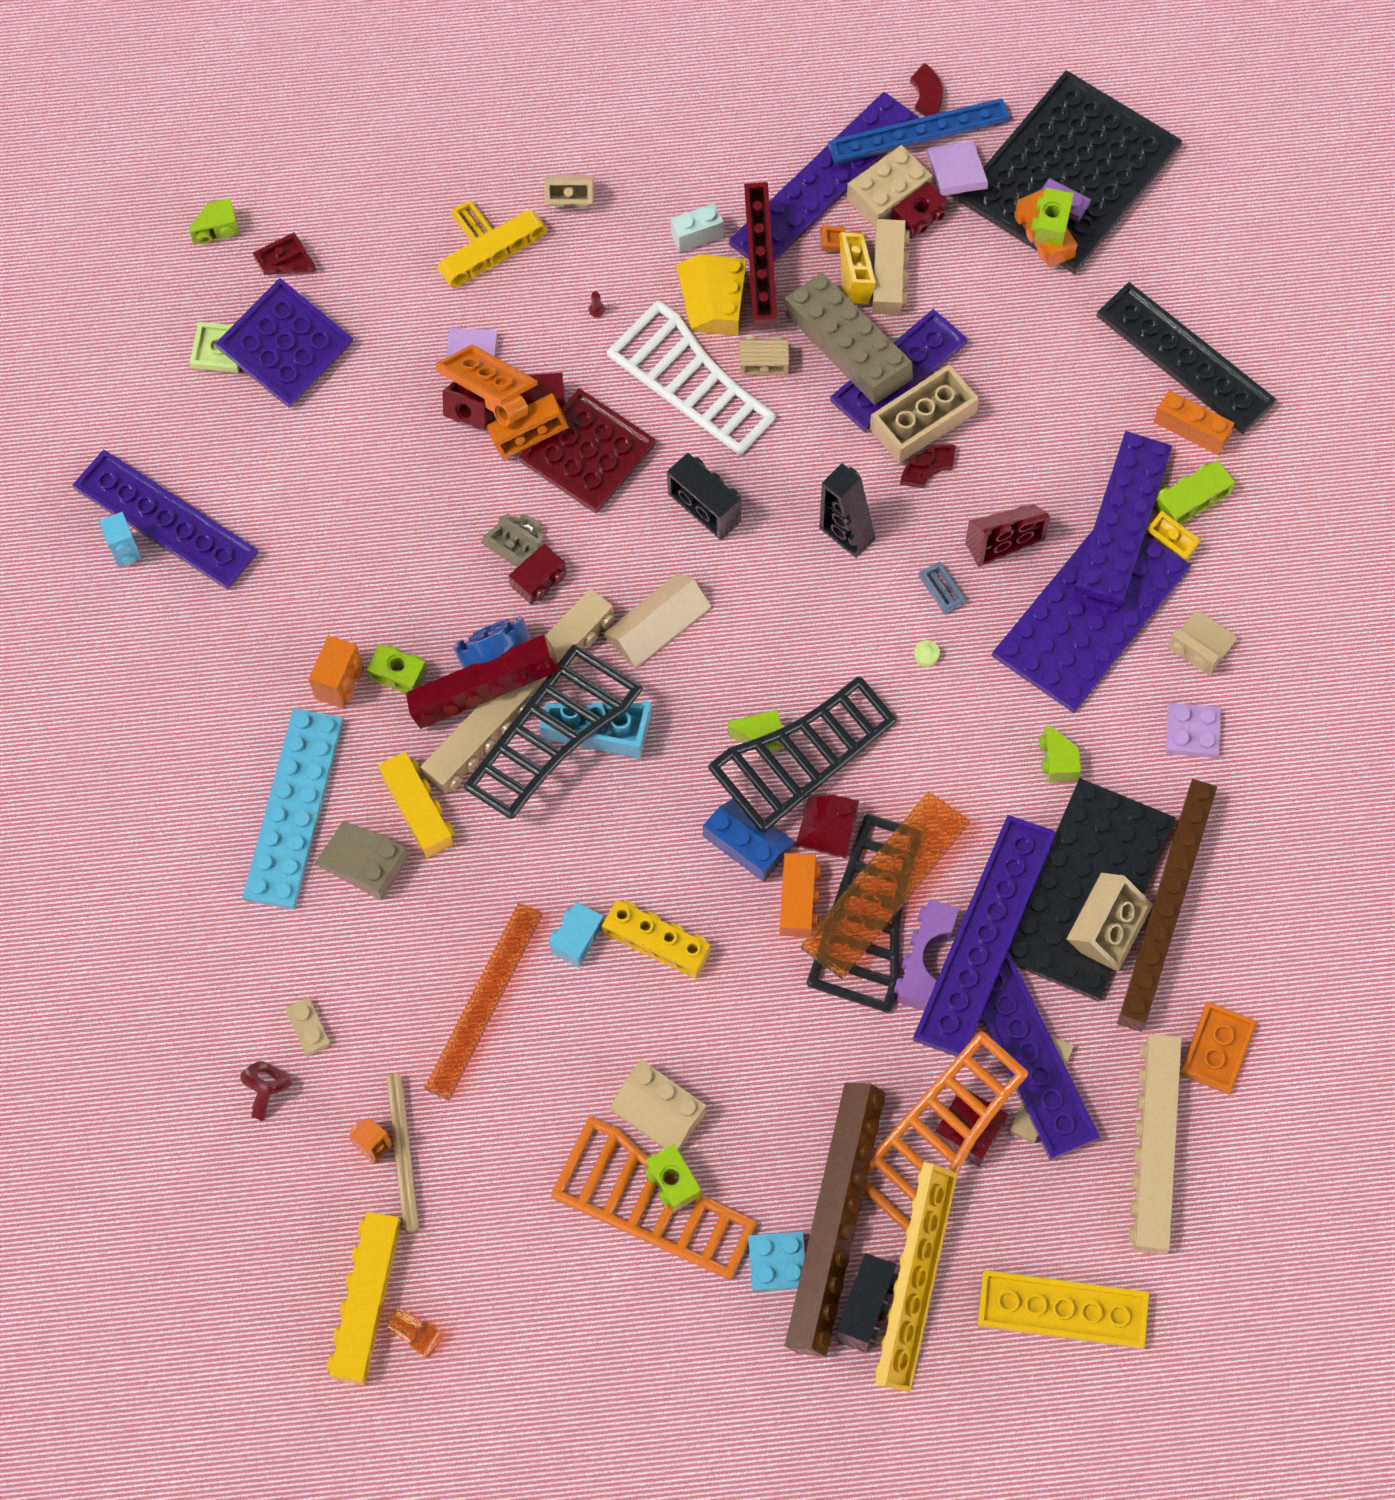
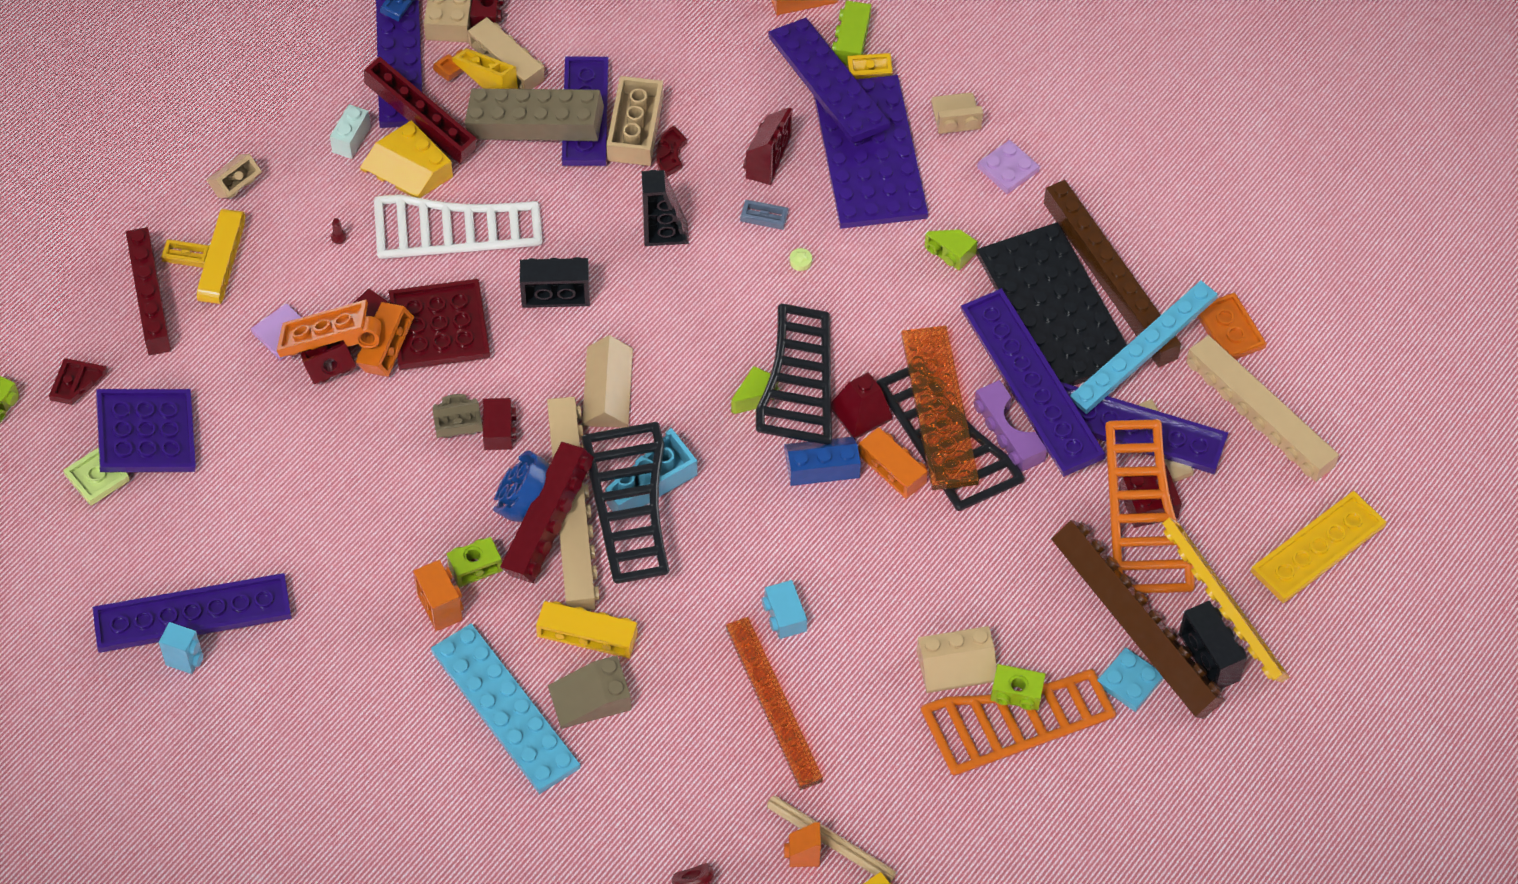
camera: 50 degrees left, 10 degrees down
(308, 1027) = (677, 826): tan plate -> none
(408, 230) = (148, 291): none -> dark red brick
(656, 938) = (838, 566): yellow brick -> none
(764, 356) = (489, 172): tan brick -> none
(1108, 995) = (1143, 347): none -> medium azure plate
(1110, 920) = (1092, 307): tan slope -> none

